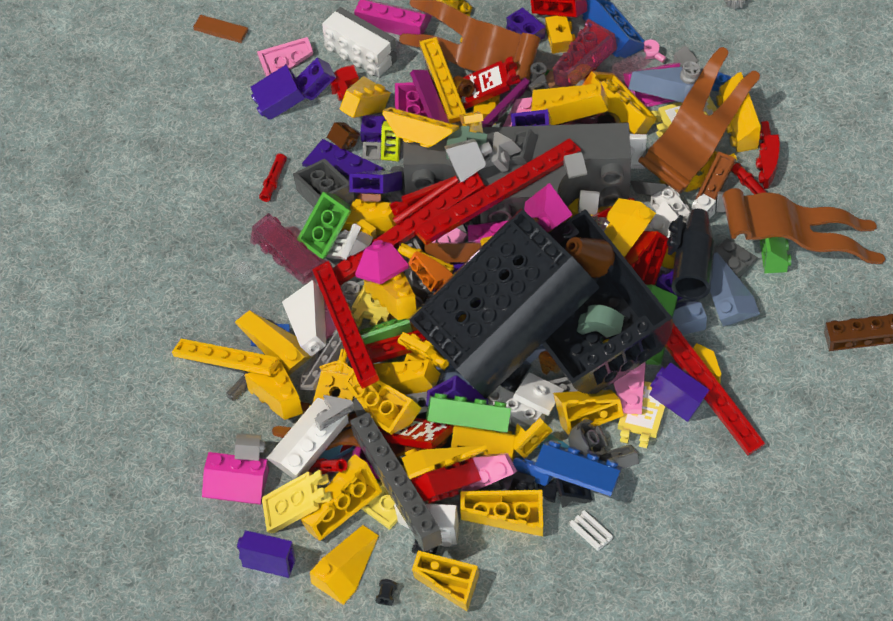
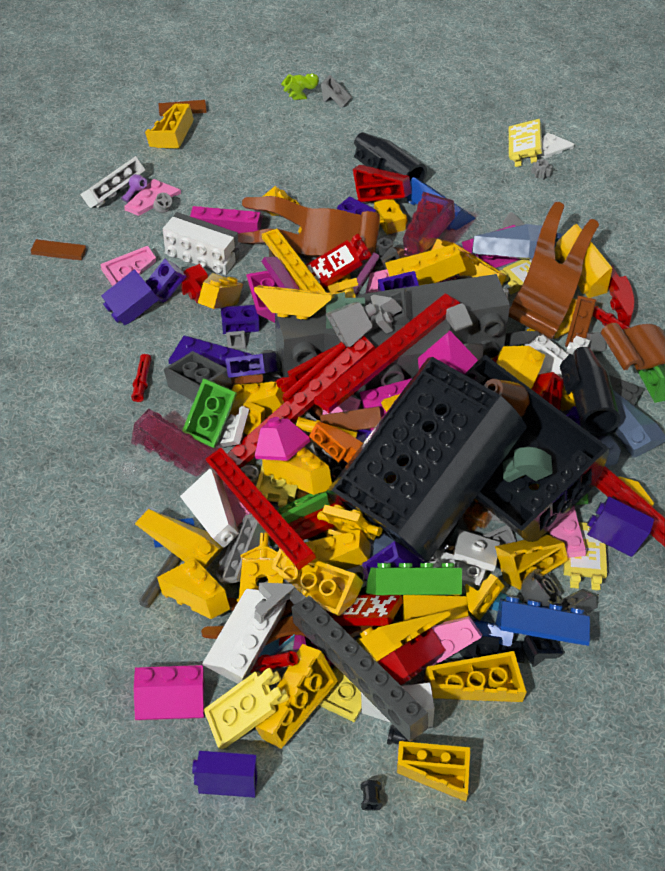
camera: 15 degrees left, 5 degrees down
(226, 357) = (132, 561): yellow tile -> none
(249, 446) = (180, 654): light grey brick -> none
(343, 135) = (205, 329): reddish brown brick -> none
(343, 567) = (315, 774): yellow wedge -> none
(362, 241) = (252, 424): light grey slope -> none
(384, 140) = (254, 312): neon yellow slope -> none
(464, 86) = (316, 267): reddish brown cone -> none
(579, 519) = (566, 692): white tile -> none
(651, 48) = (481, 219): bright pink piece -> none
(690, 72) = (531, 228): light grey wheel -> none

